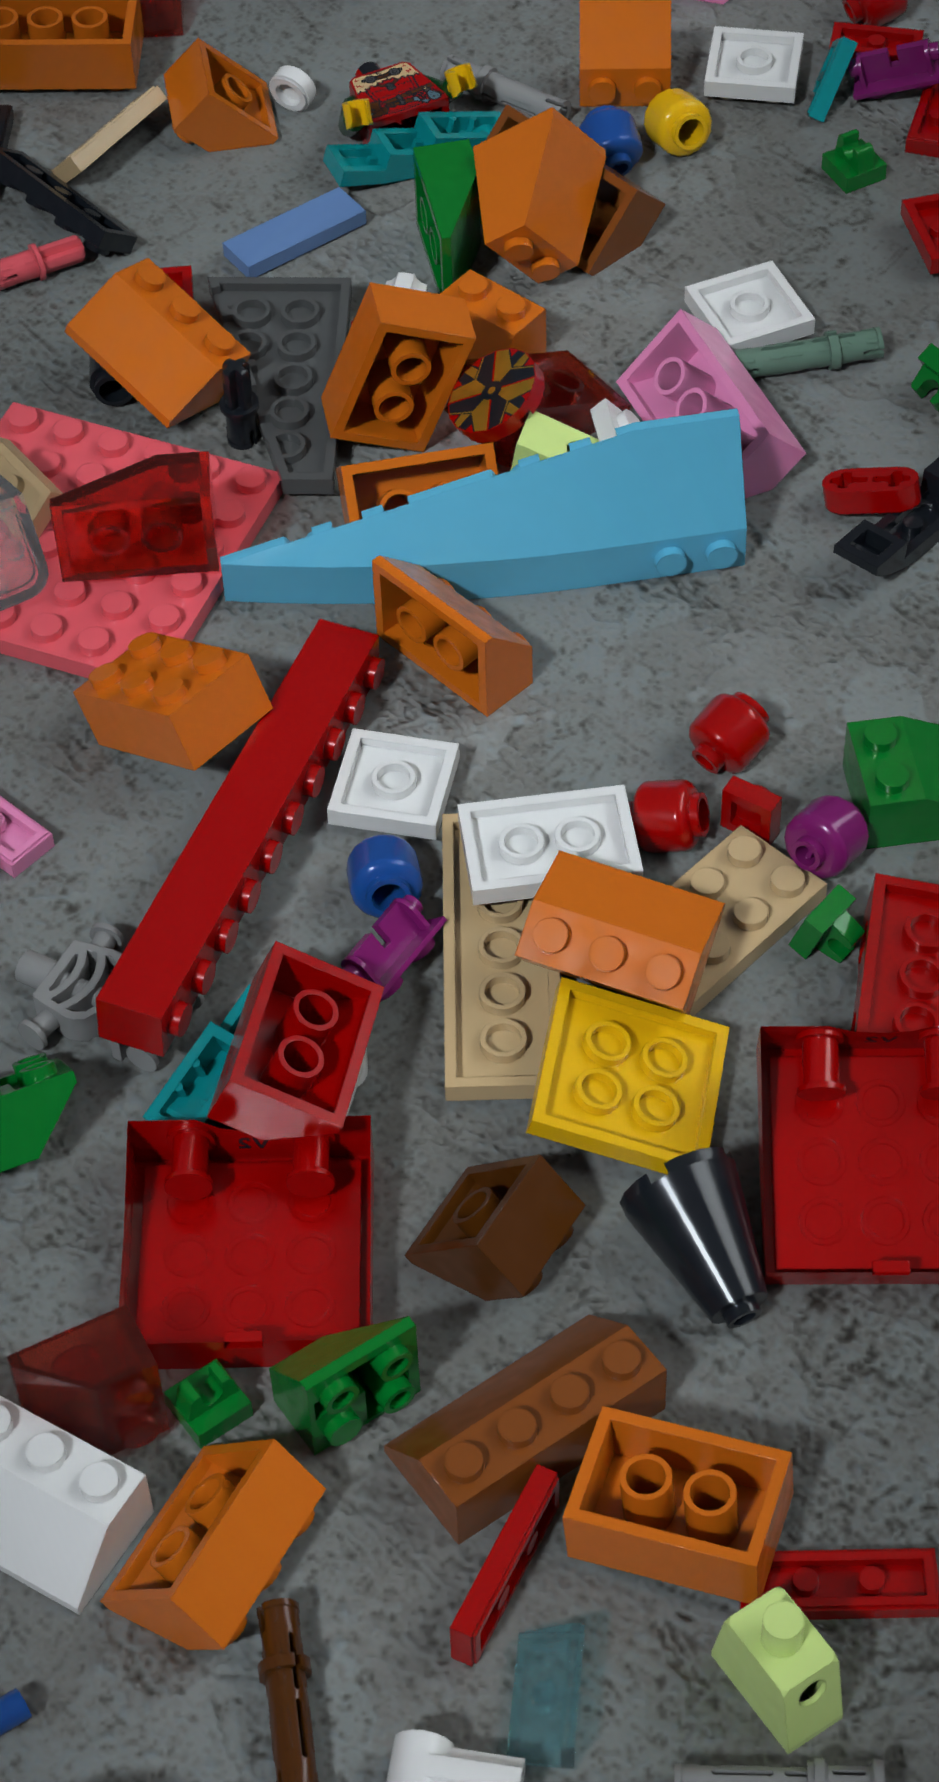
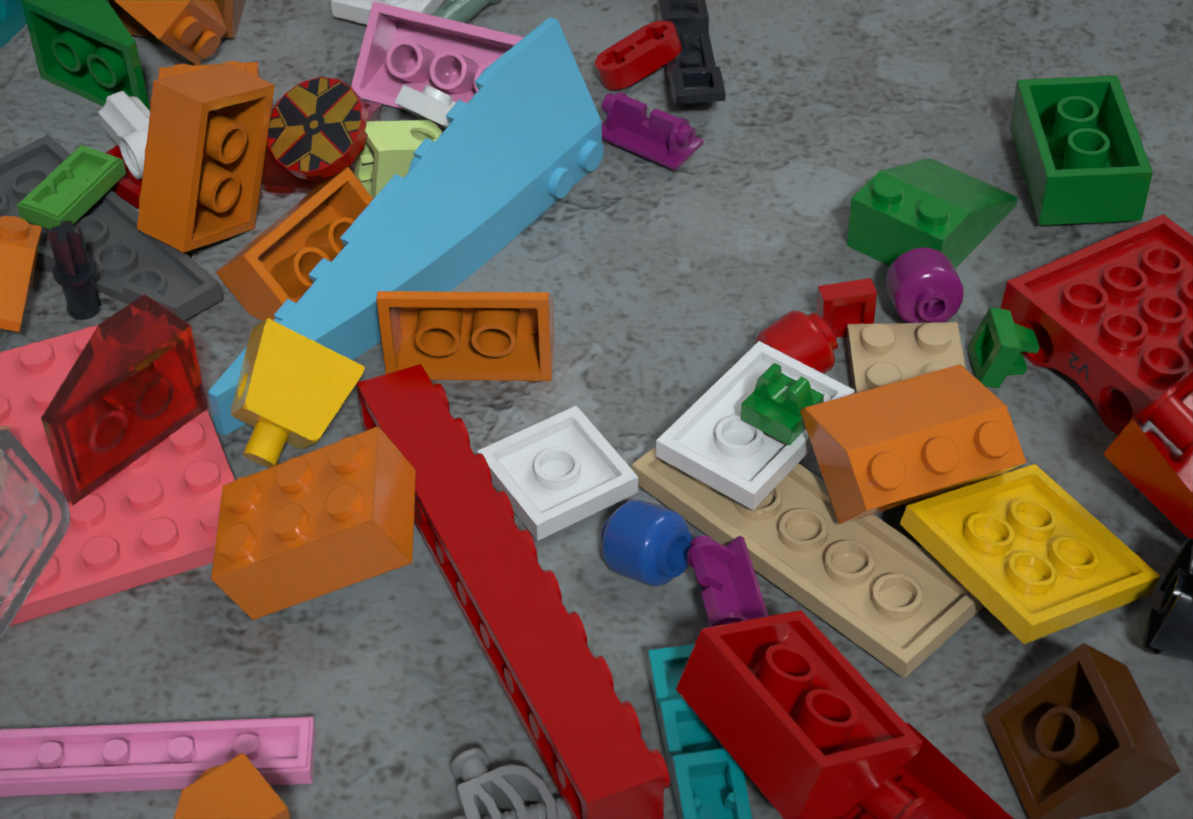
camera: 45 degrees left, 5 degrees down
(269, 593) = (289, 390): none -> yellow torso
(303, 335) = (72, 188): none -> bright green plate
(565, 832) = (777, 404): none -> green tile
(729, 733) = (760, 267): red head -> none
(794, 563) = (656, 137): none -> magenta hinge

